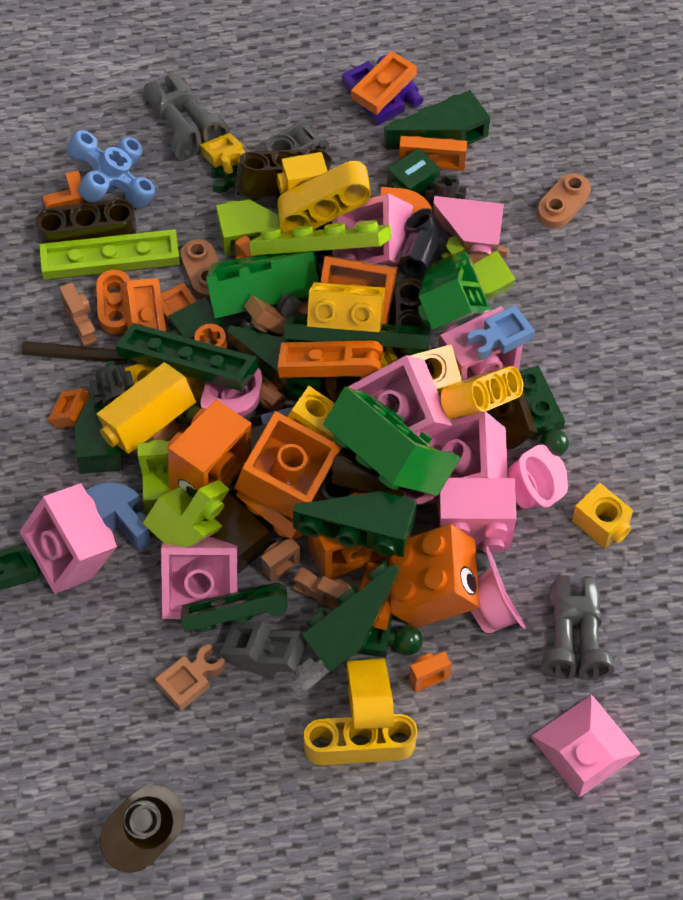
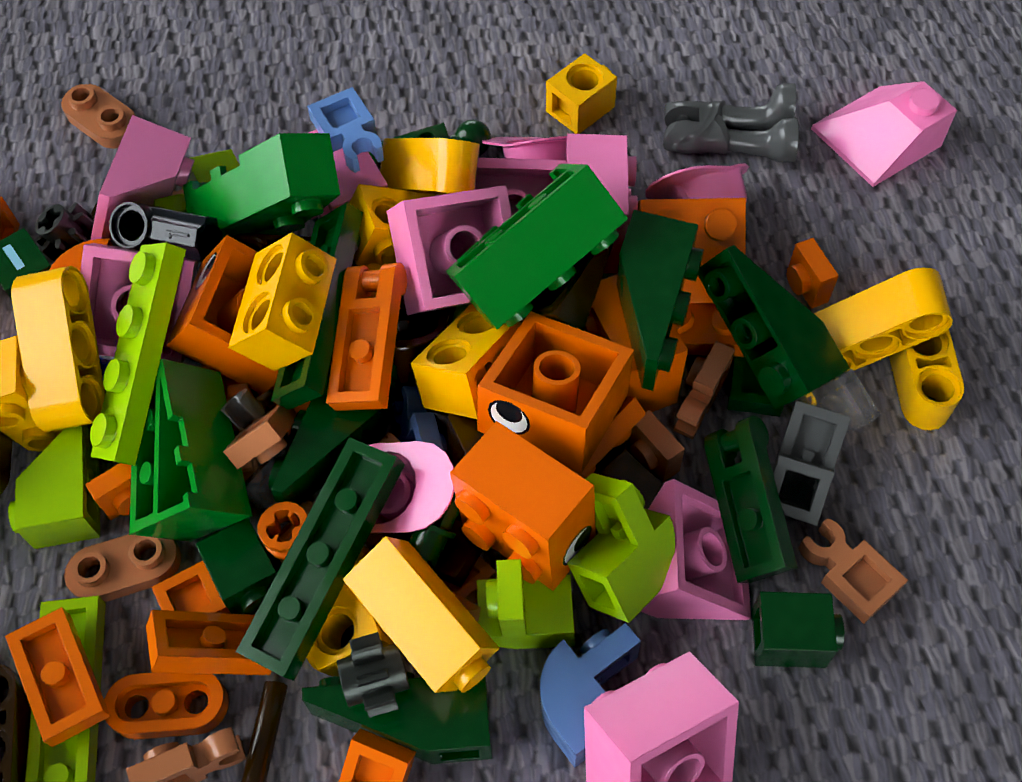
camera: 85 degrees left, 0 degrees up
(125, 241) = (57, 677): none -> orange plate
(147, 635) = (796, 629): none -> dark green brick

